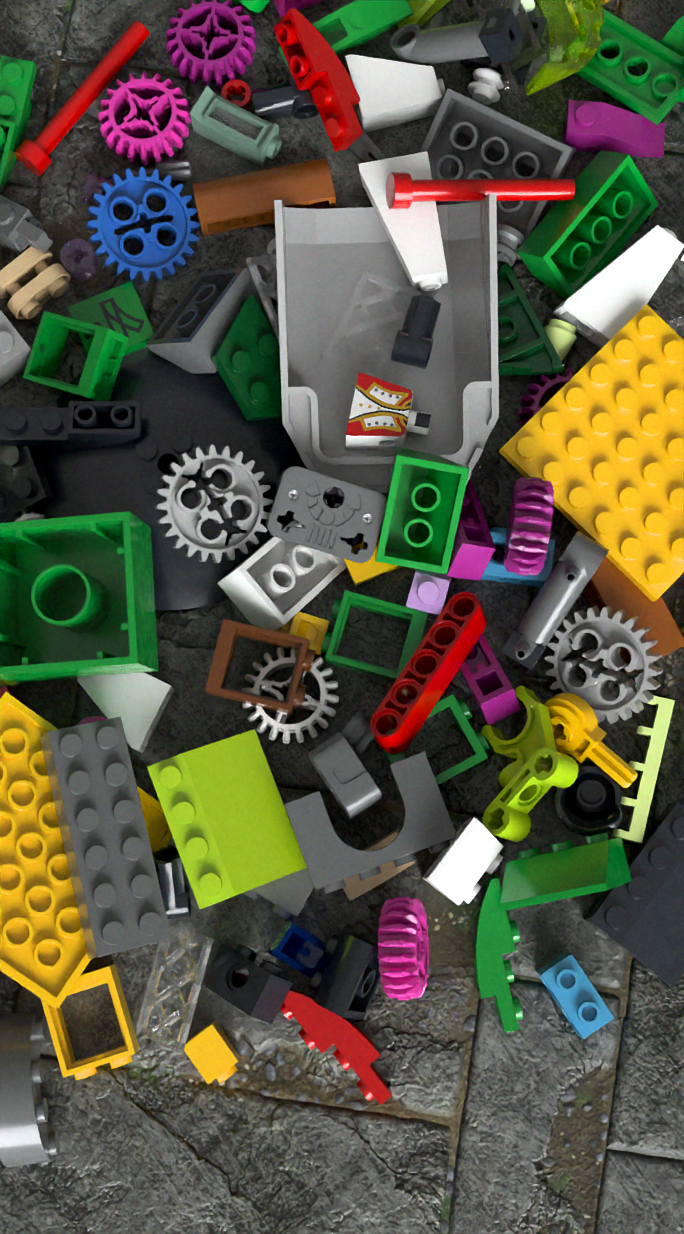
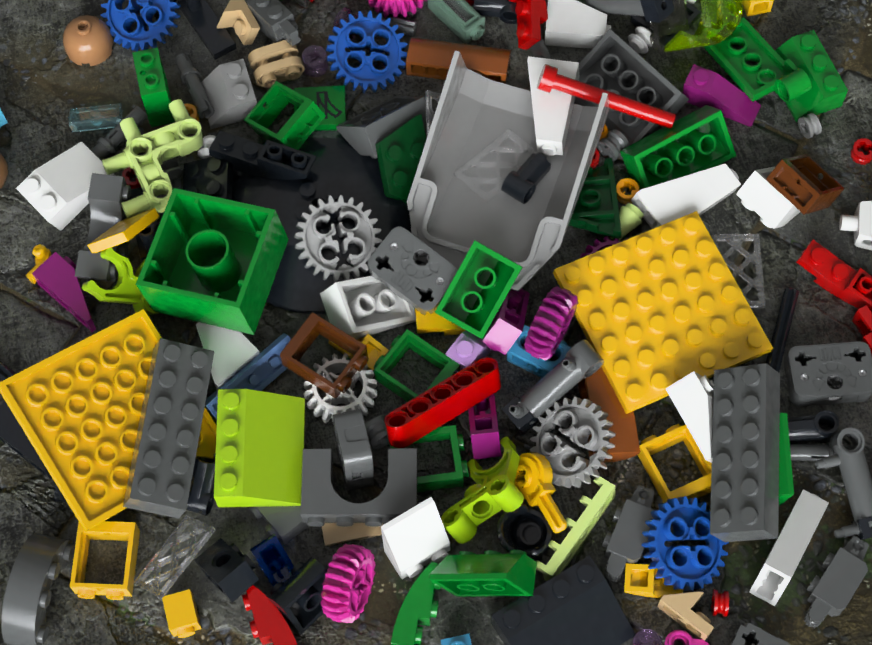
camera: 20 degrees right, 15 degrees down
(175, 717) = (255, 374): none -> medium blue plate
(382, 415) = (479, 220): torso -> none
(545, 290) = (626, 183): none -> light orange bush

